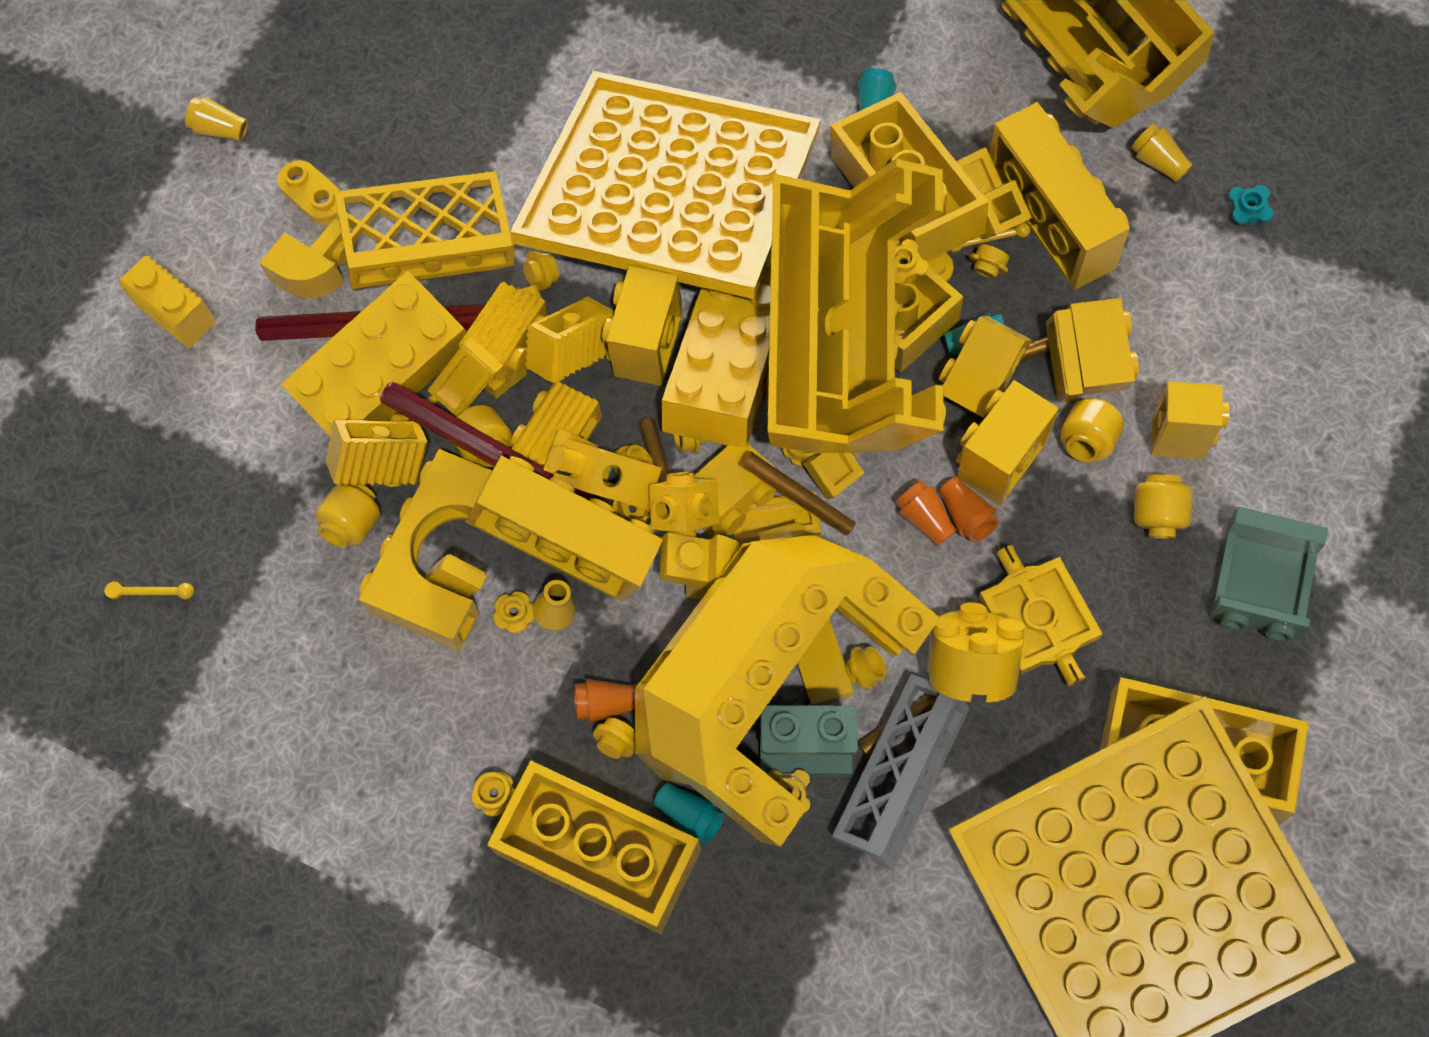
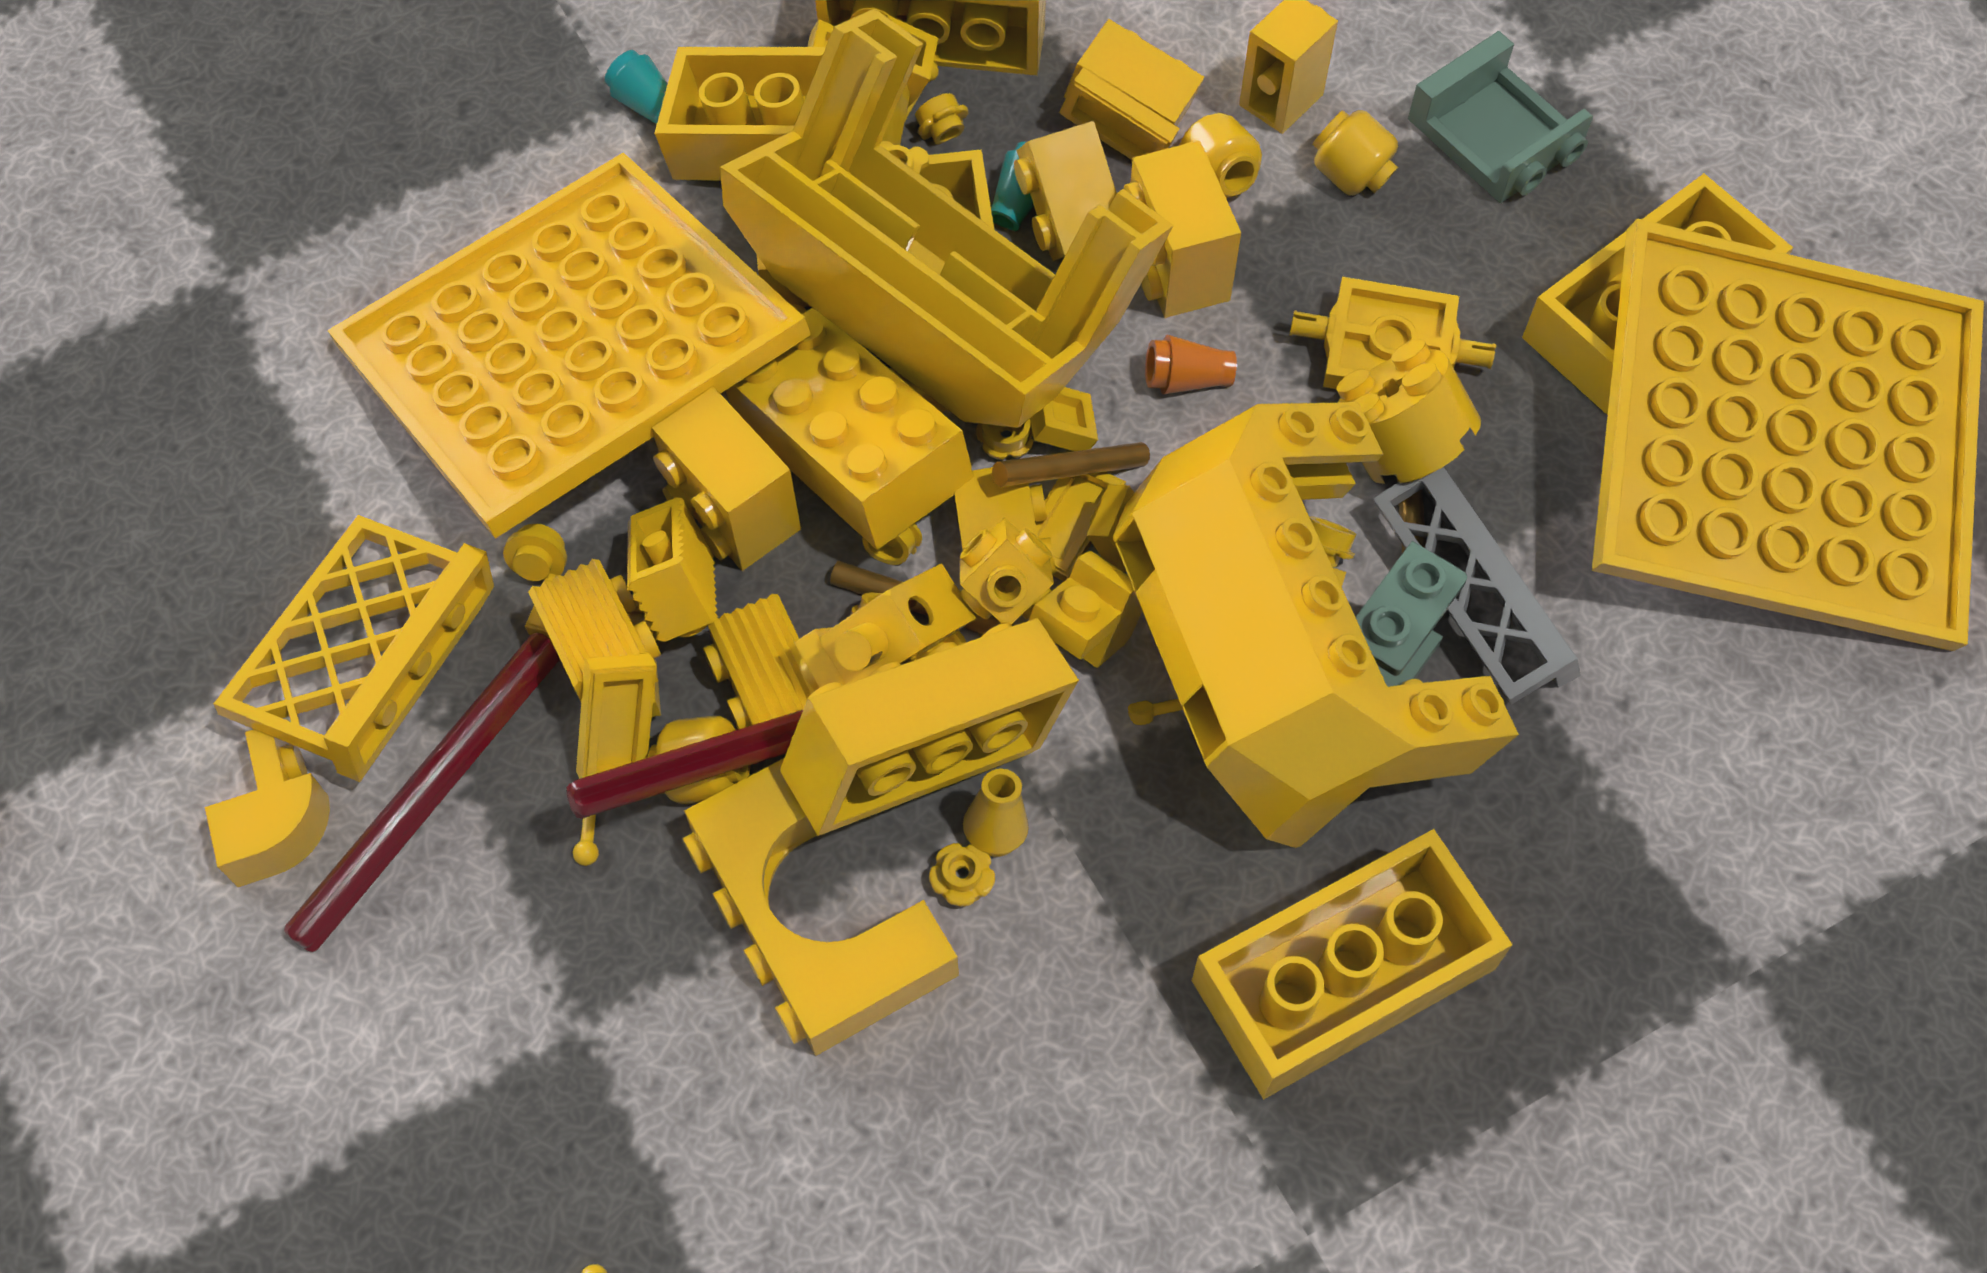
camera: 60 degrees left, 5 degrees down
(167, 301) = (151, 1029): yellow brick -> none
(308, 191) = (162, 752): yellow plate -> none
(347, 515) = (671, 988): yellow head -> none
(375, 452) = (624, 888): yellow brick -> none
(395, 339) = (497, 811): yellow brick -> none
(456, 576) = (881, 892): yellow tile -> none
(484, 785) = (1184, 1031): yellow plate -> none
(602, 700) = (1155, 846): orange cone -> none
(615, 738) = (1218, 859): yellow plate -> none
(690, 812) = (1367, 835): teal cone -> none
(968, 510) = (1218, 324): orange cone -> none

